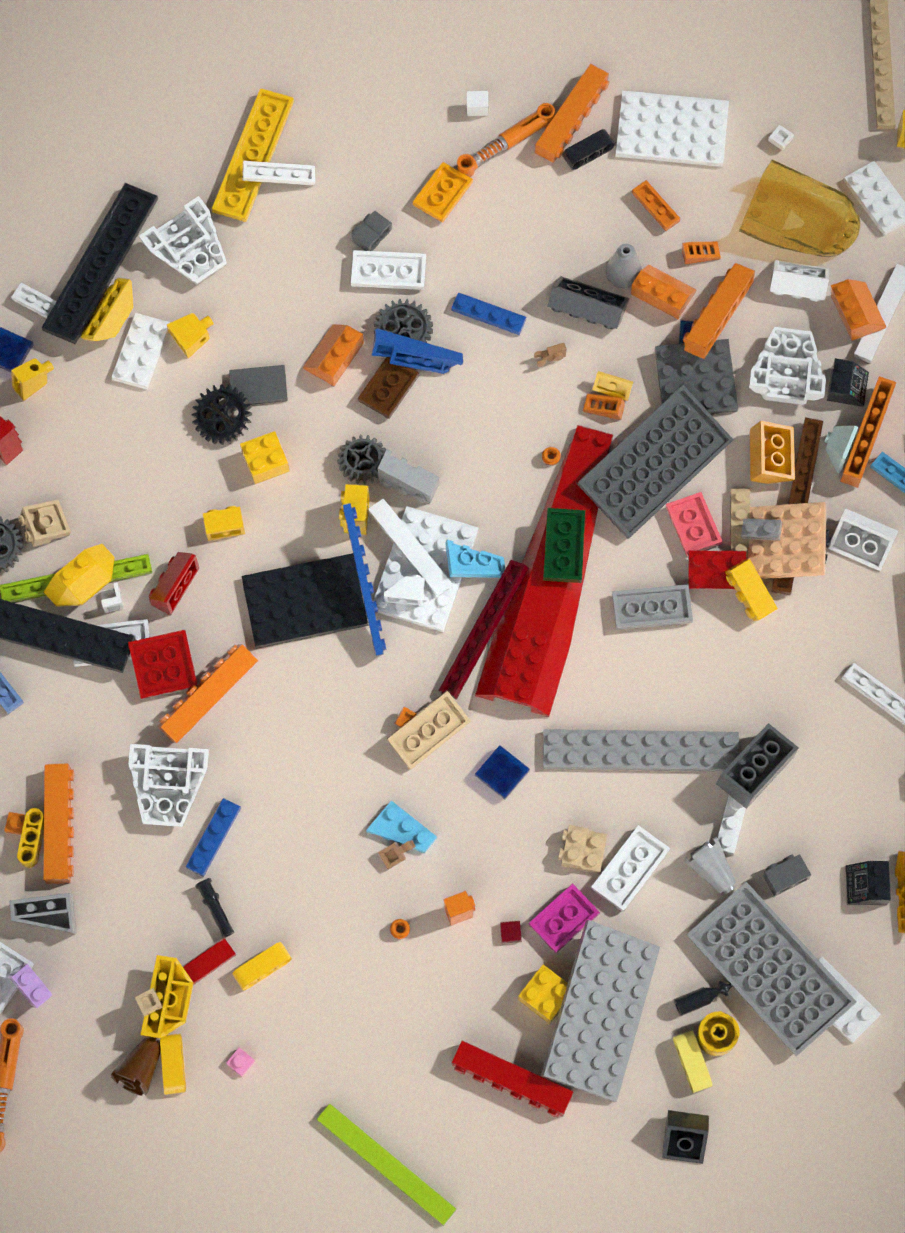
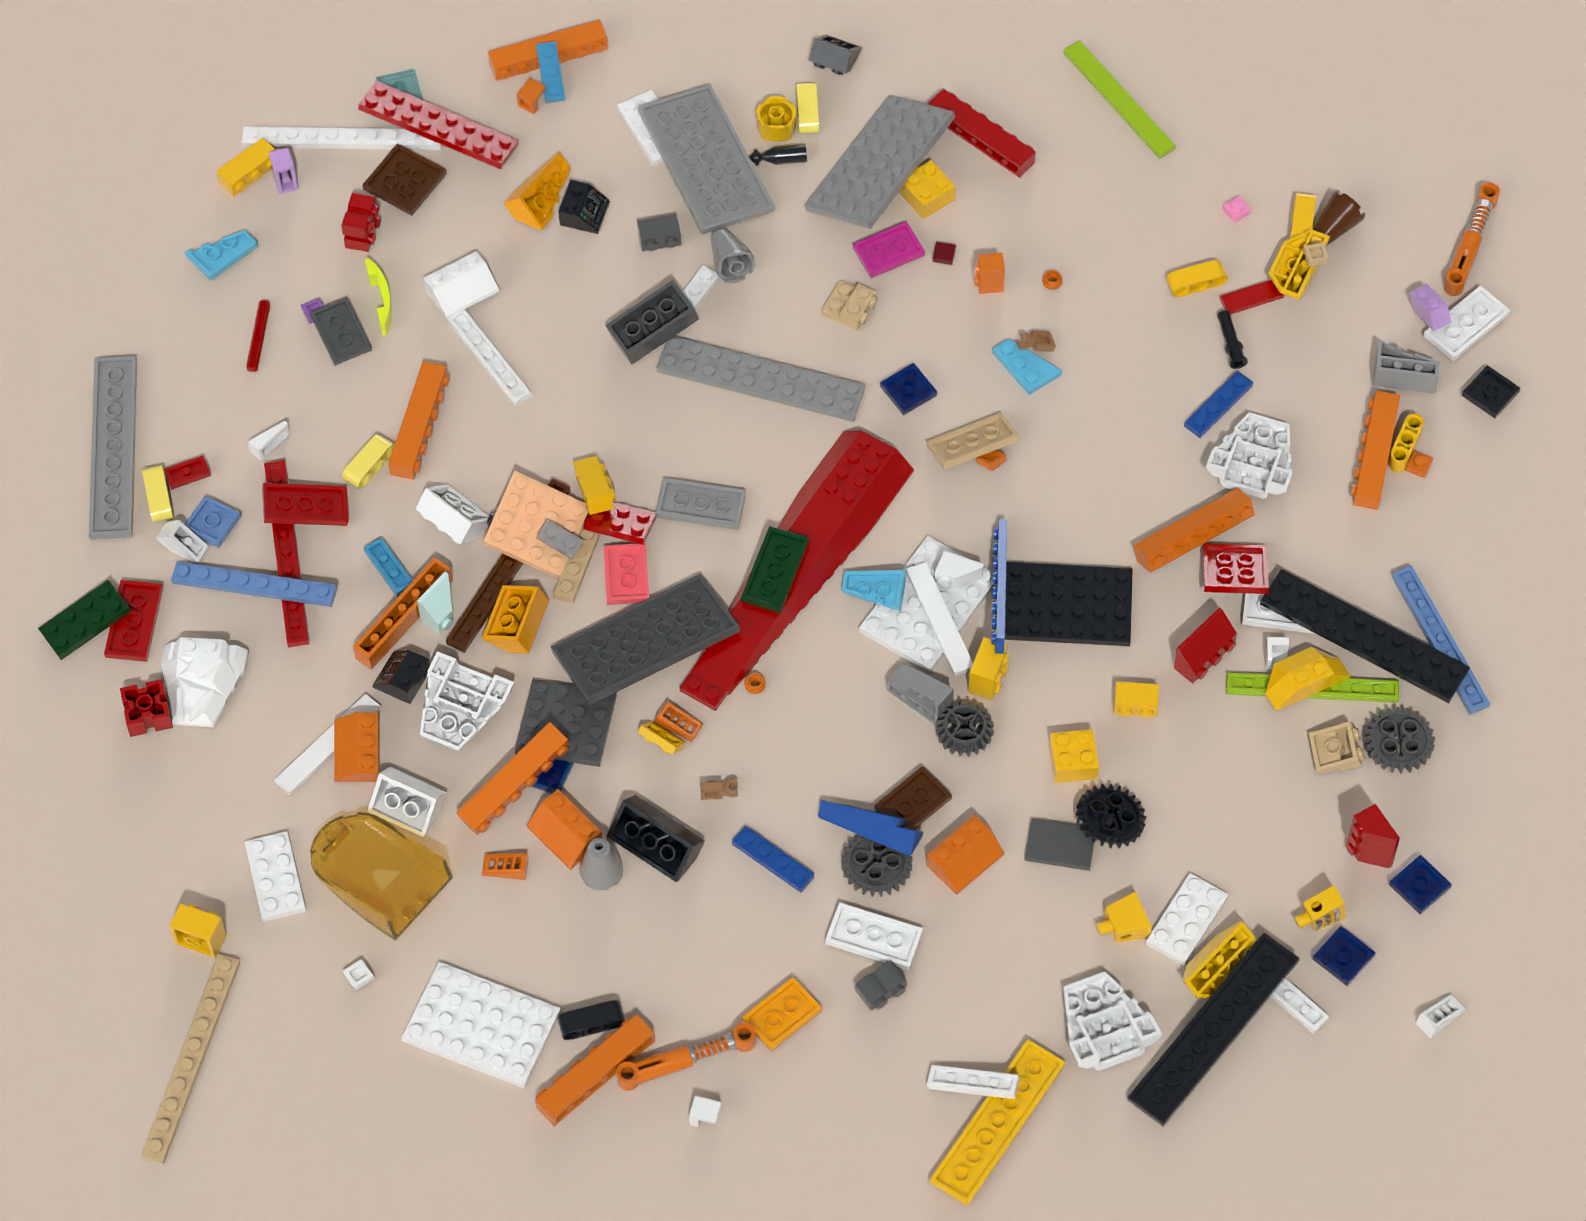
camera: 165 degrees left, 10 degrees down
(483, 628) = (885, 522): dark red plate -> none
(630, 868) = (809, 276): white plate -> none
(656, 205) = (536, 931): orange plate -> none

